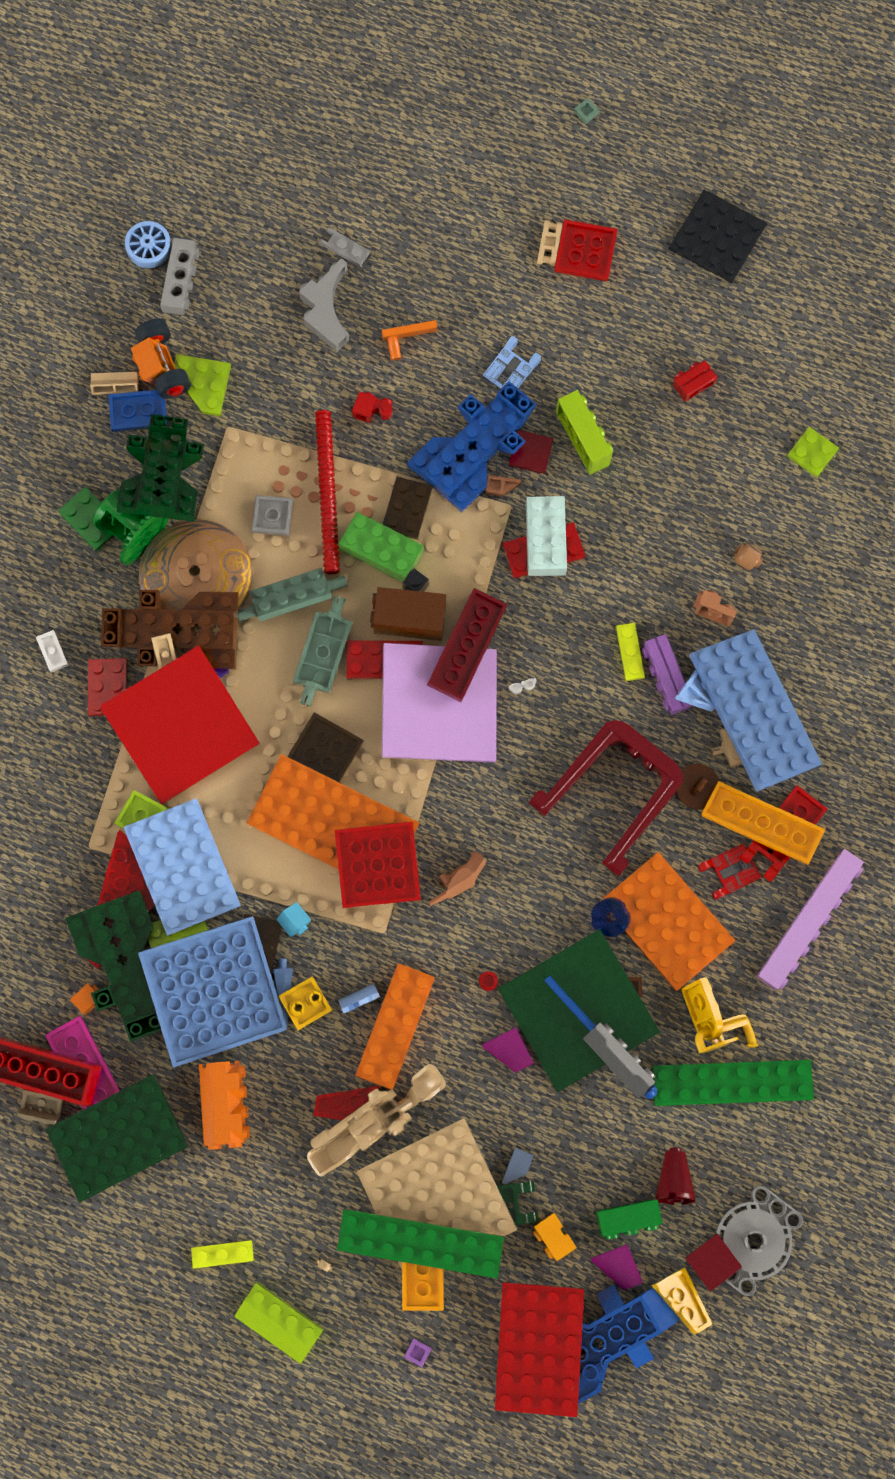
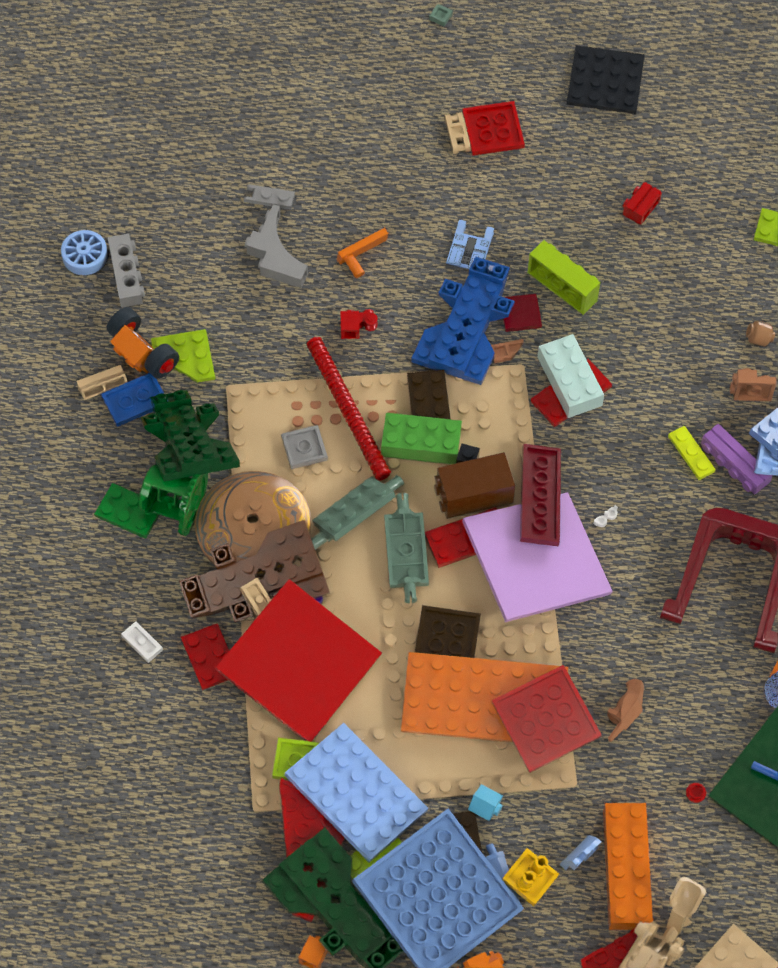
camera: 20 degrees left, 15 degrees down
(509, 1050) = (746, 847): magenta slope -> none

